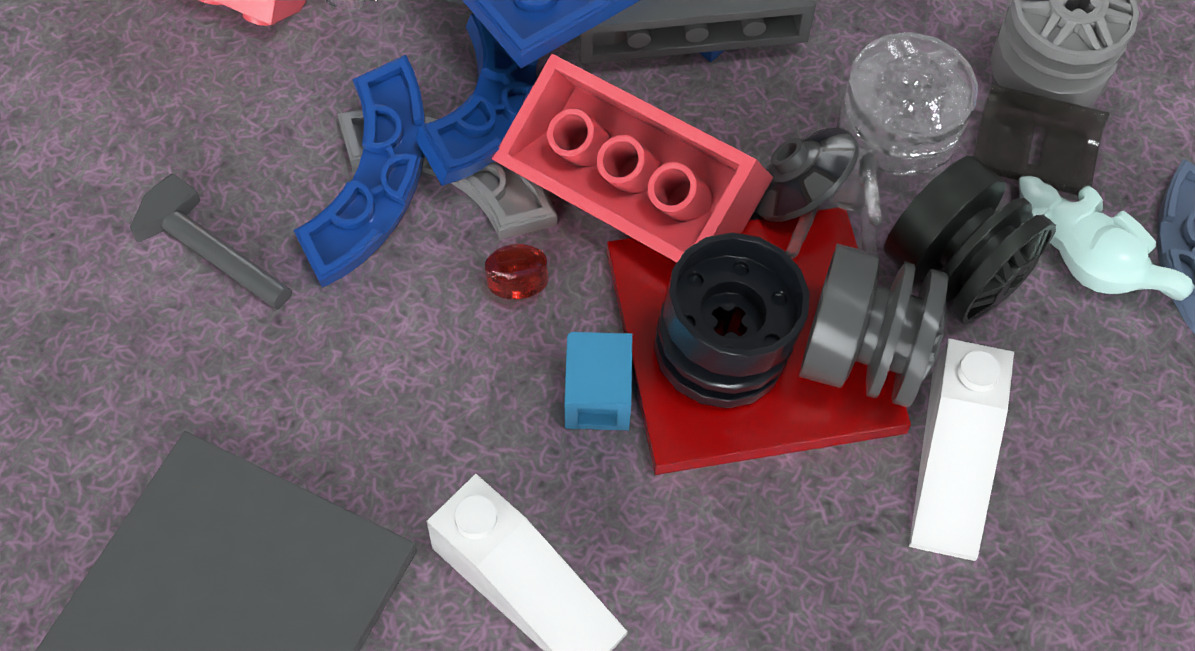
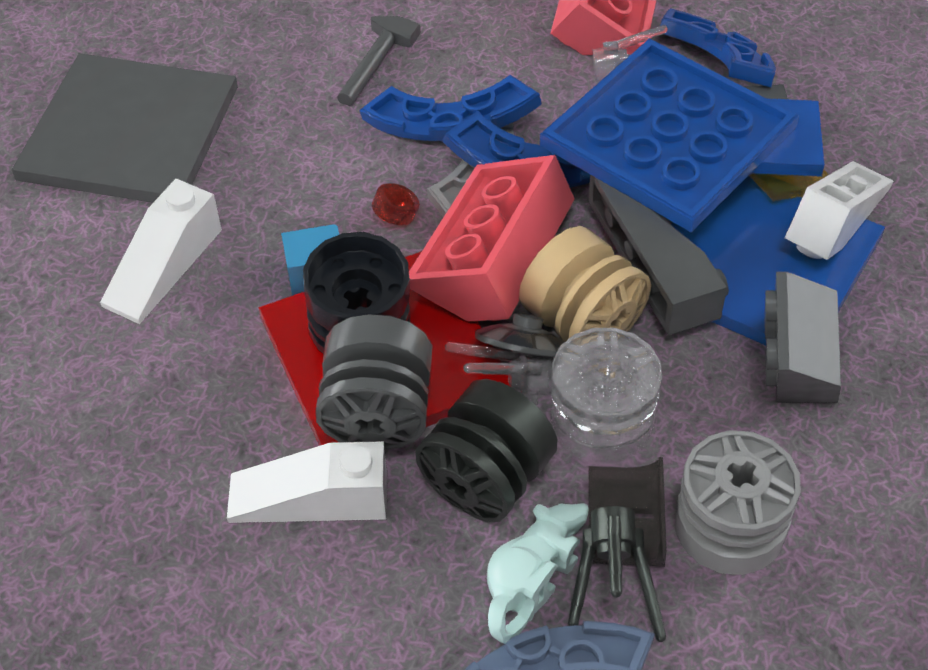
camera: 80 degrees right, 10 degrees down
(759, 86) = (583, 285): none -> tan wheel
(1096, 151) = (614, 537): none -> pearl dark grey plant

